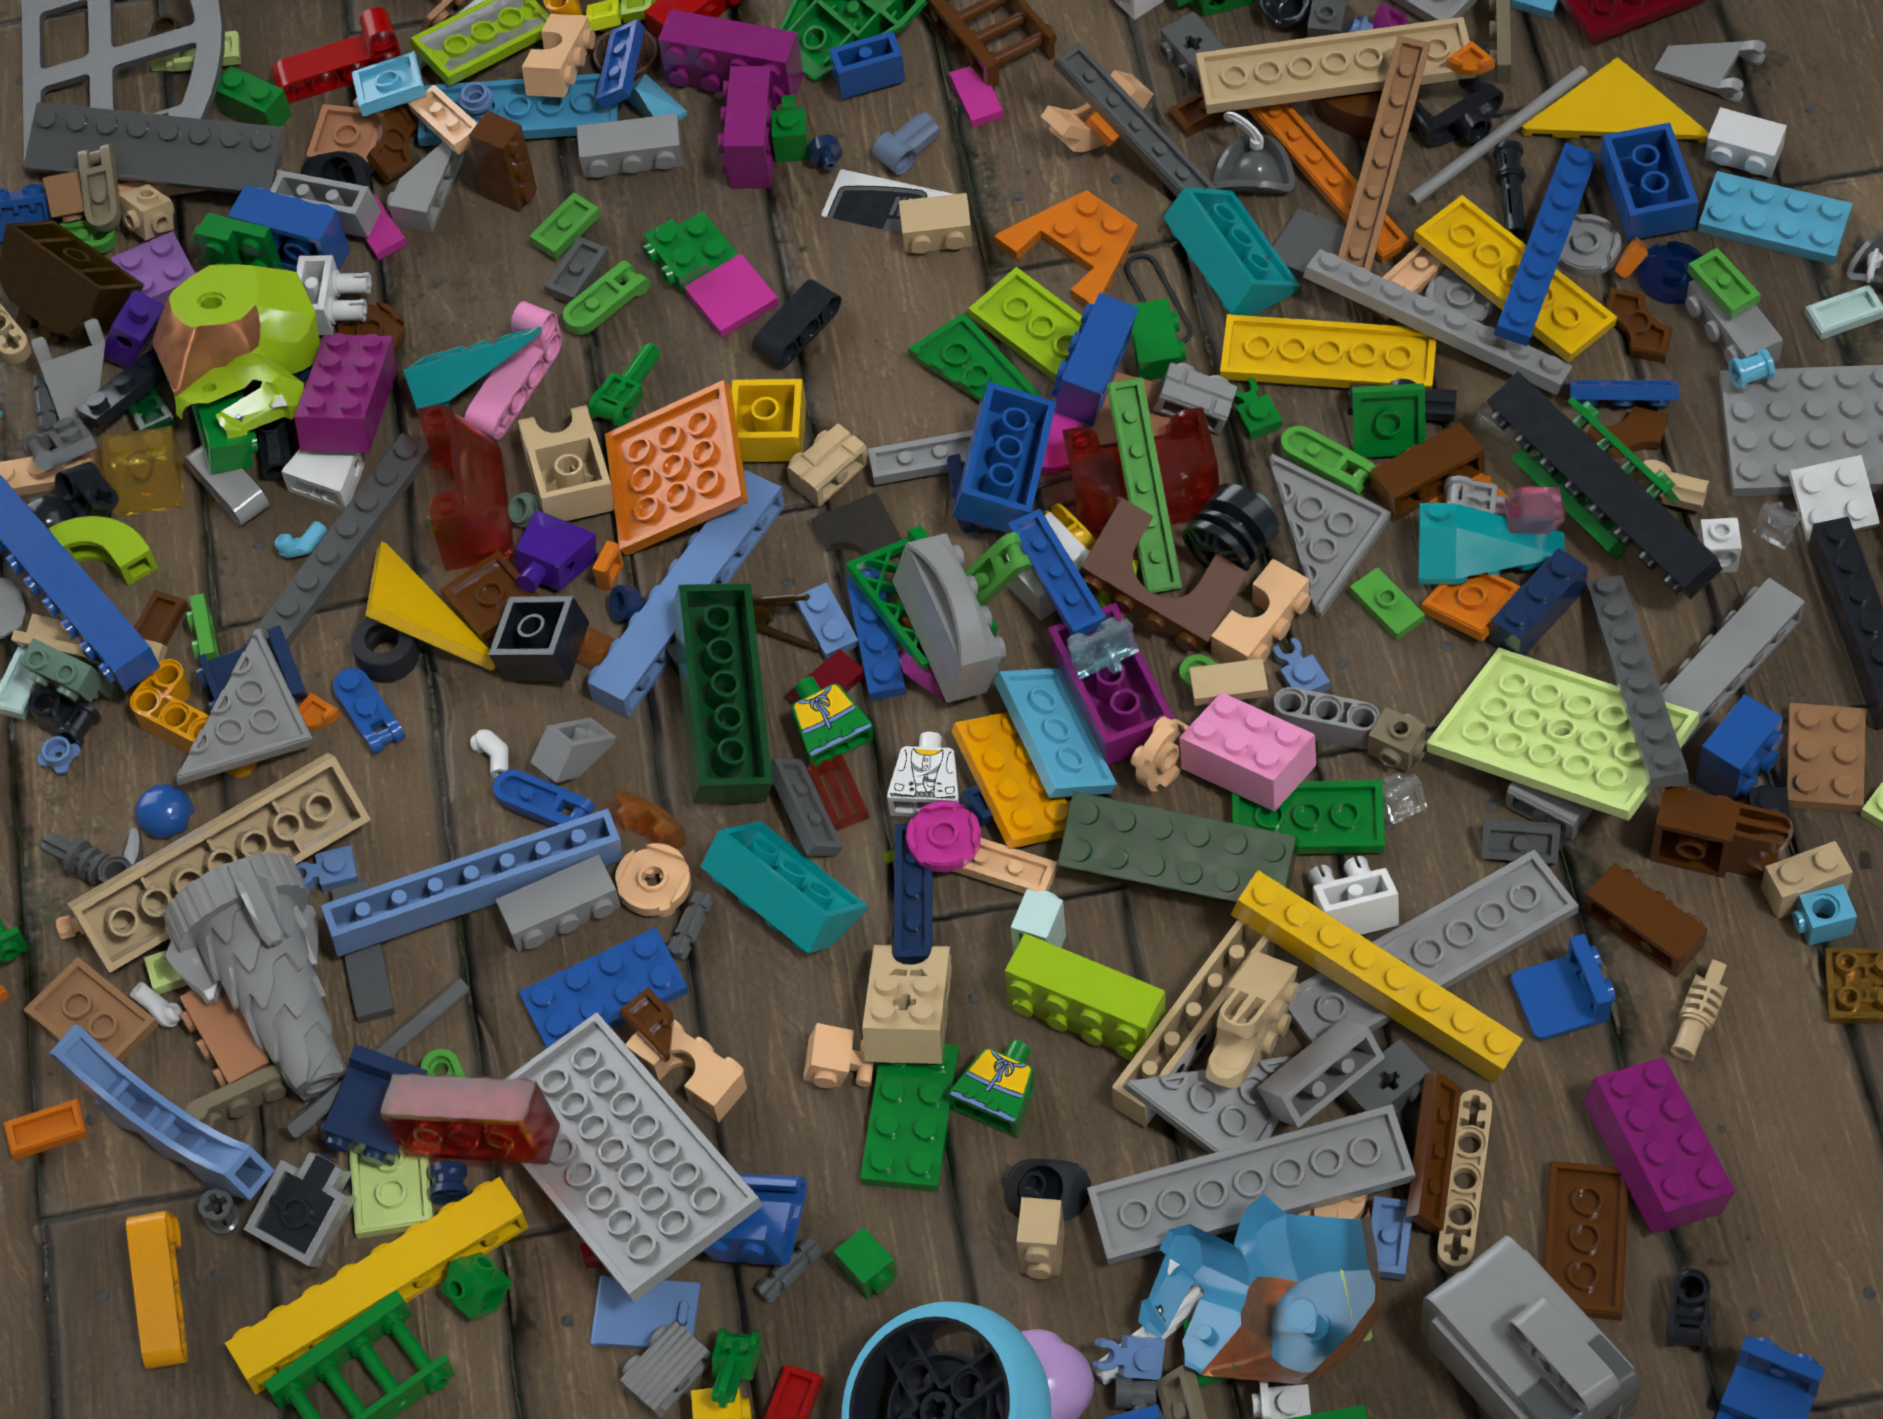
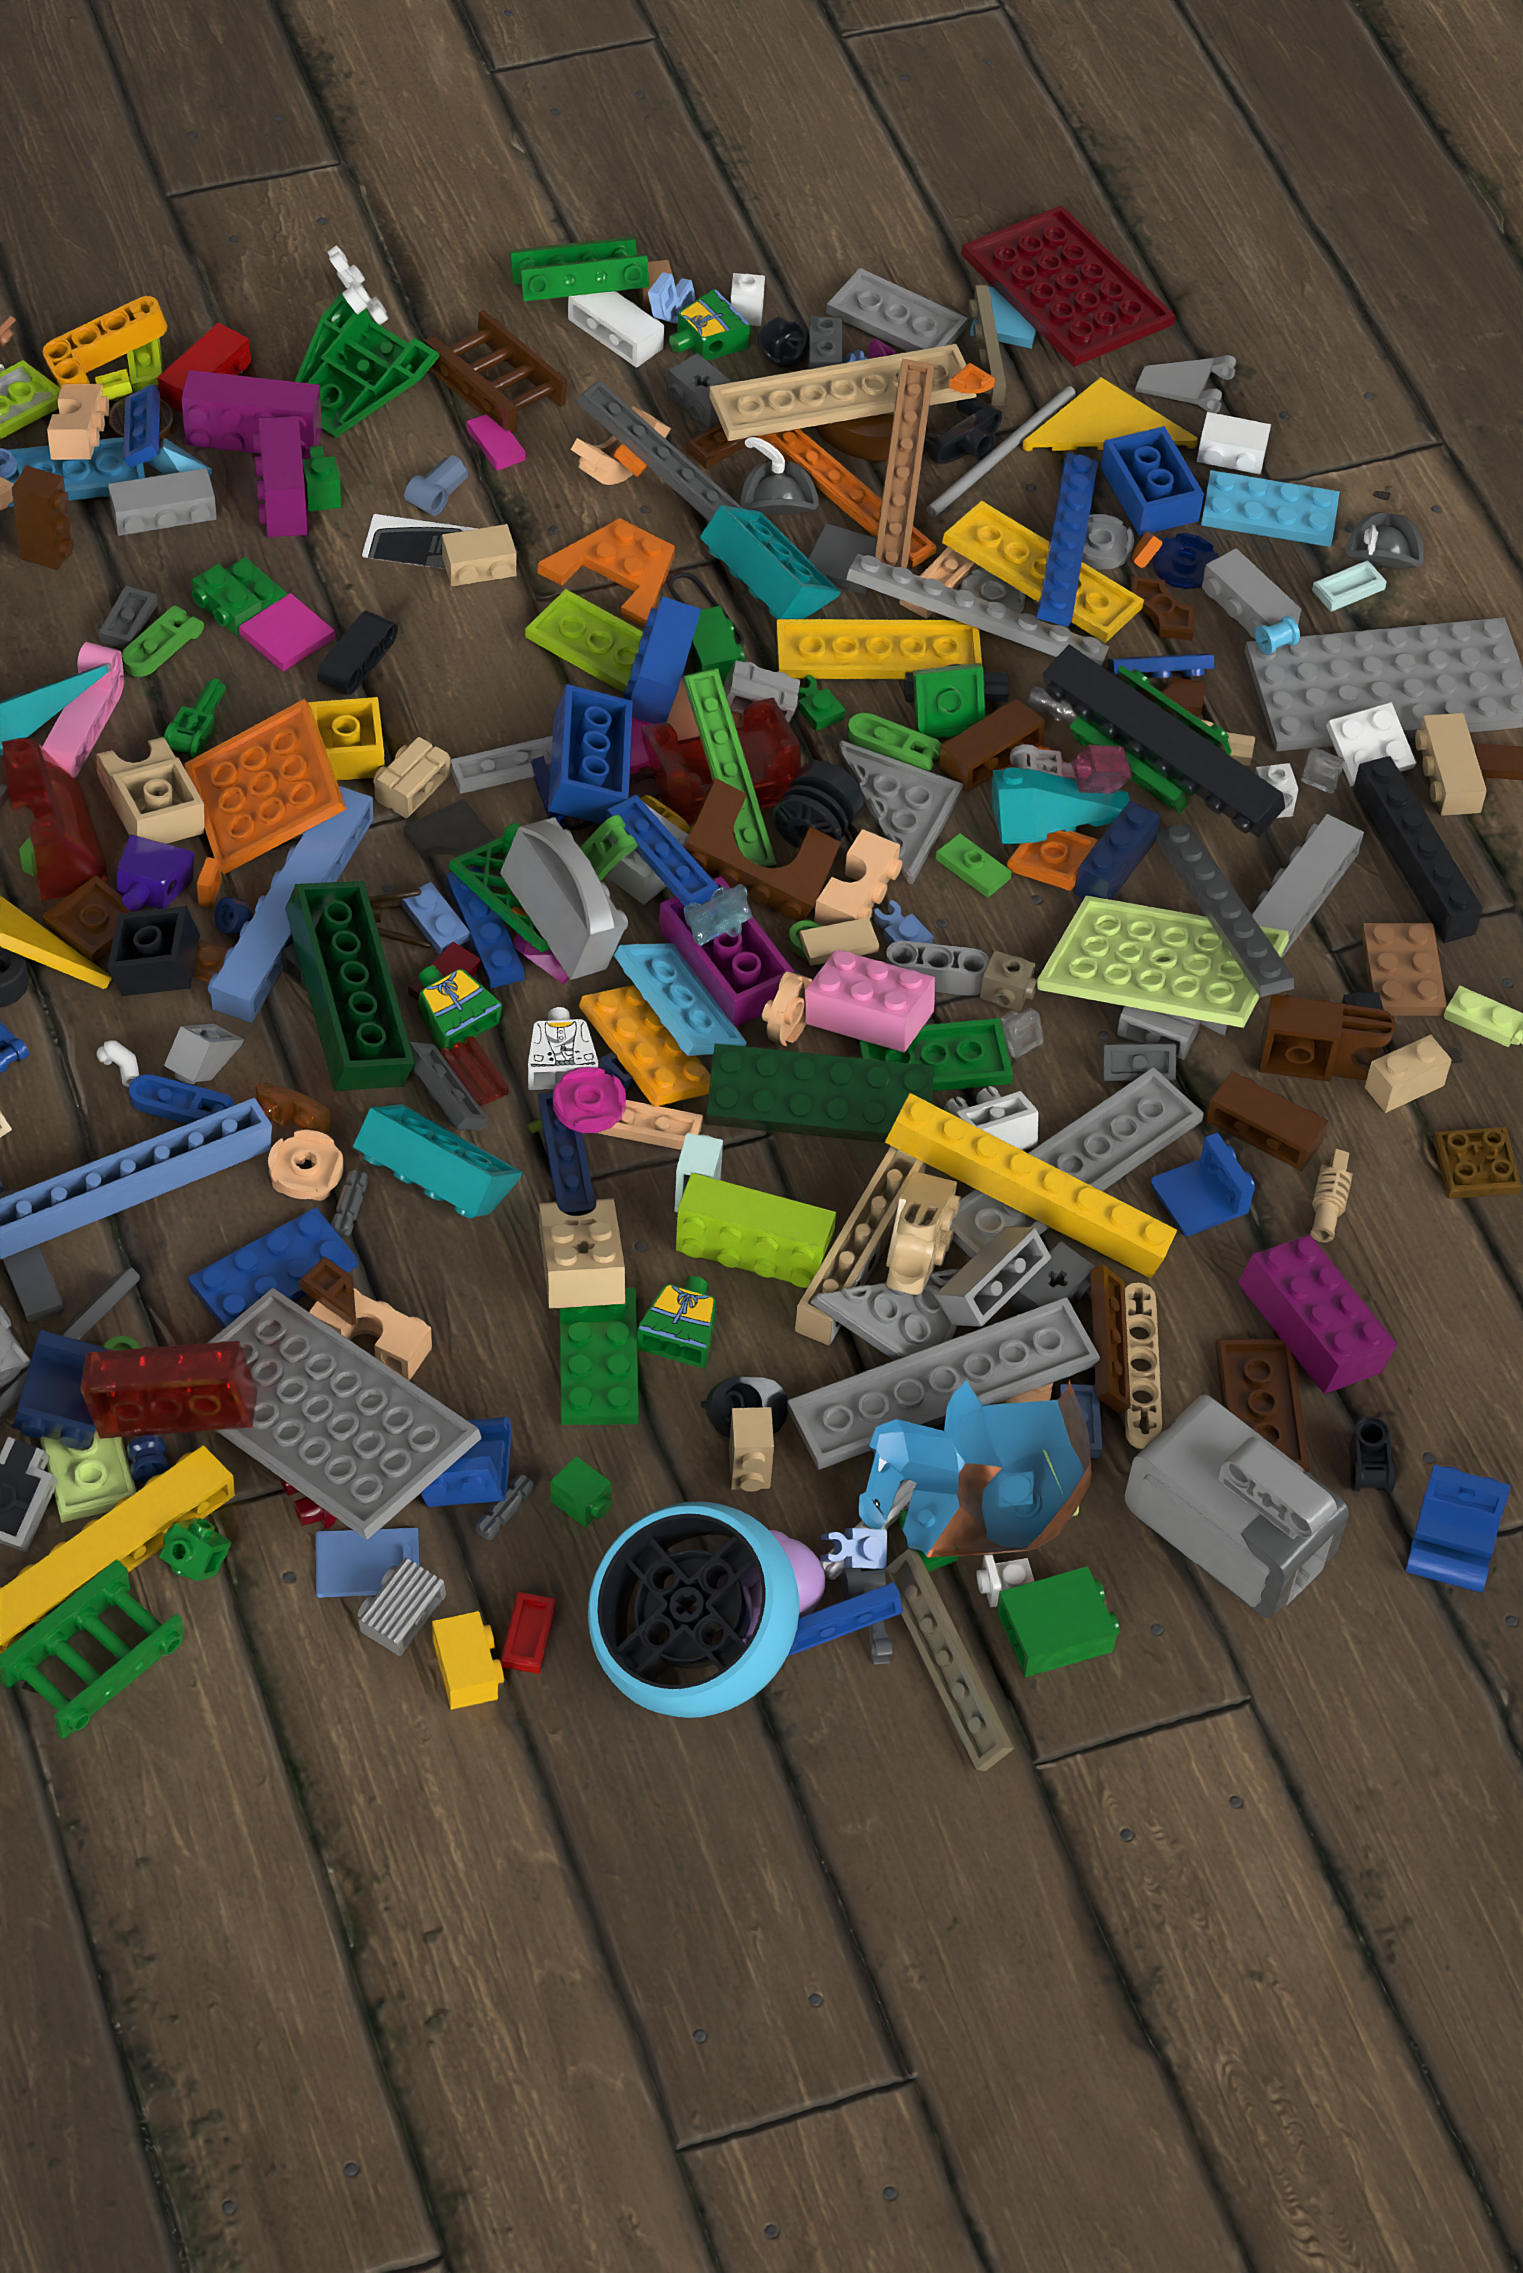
camera: 20 degrees left, 5 degrees down
(522, 508) = (114, 837): sand green plate -> none
(558, 903) = (214, 1193): light grey brick -> none
(565, 226) = (108, 578): bright green plate -> none
(732, 1360) = (469, 1592): green connector -> none
(824, 151) = (357, 497): dark blue tile -> none
(832, 1057) = (514, 1308): light nougat brick -> none
(867, 64) = (387, 416): blue brick -> none
(967, 359) = (528, 673): green wing -> none
(1510, 177) = (1014, 477): black pin -> none
(1724, 283) = (1240, 561): bright green plate -> none
(1740, 750) = (1330, 960): blue brick -> none
(1830, 901) = (1430, 1102): medium azure brick -> none

